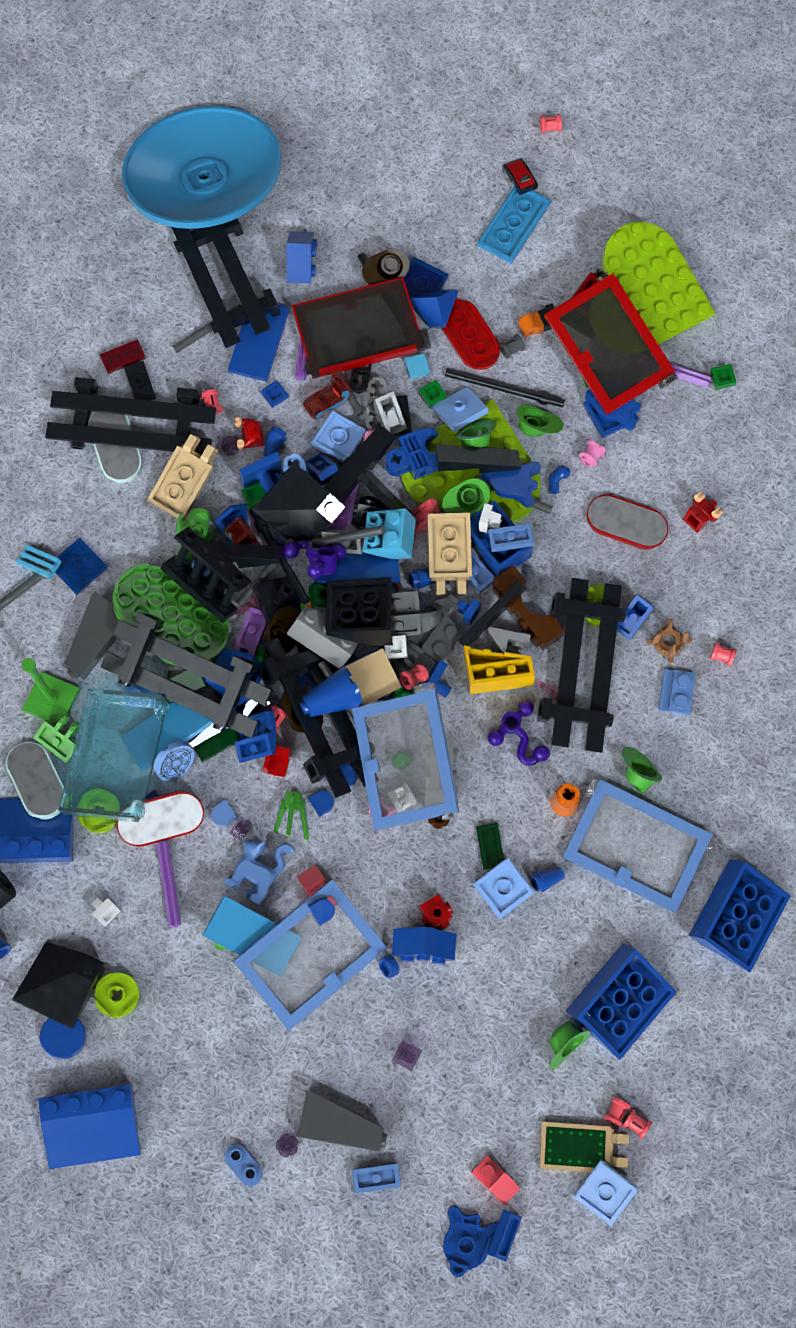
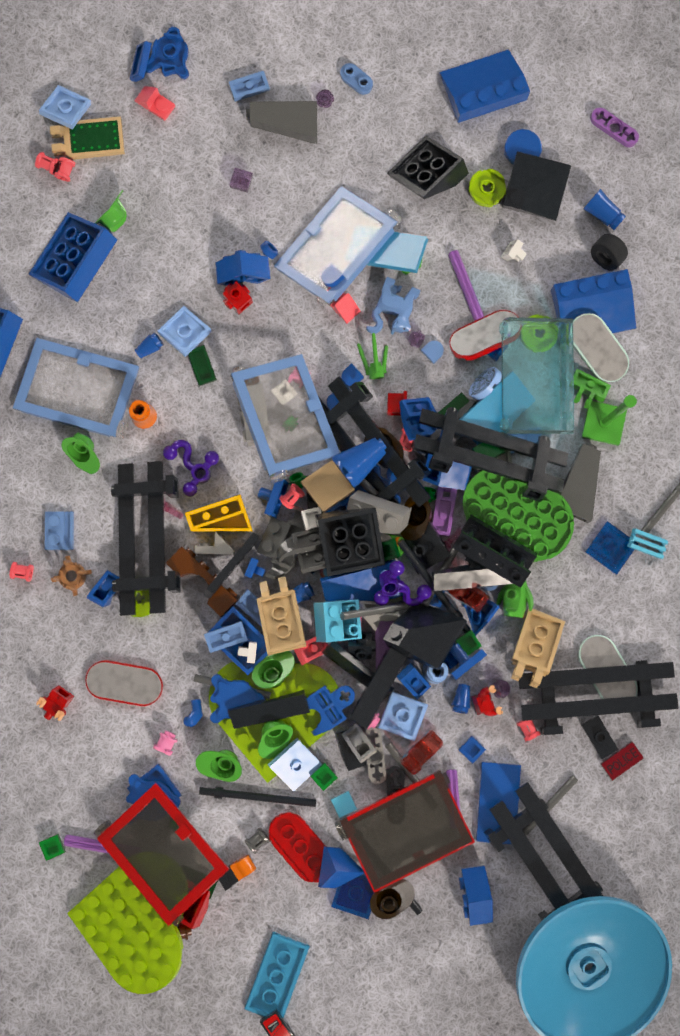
camera: 170 degrees right, 10 degrees up
(182, 1028) = (429, 169): none -> black slope

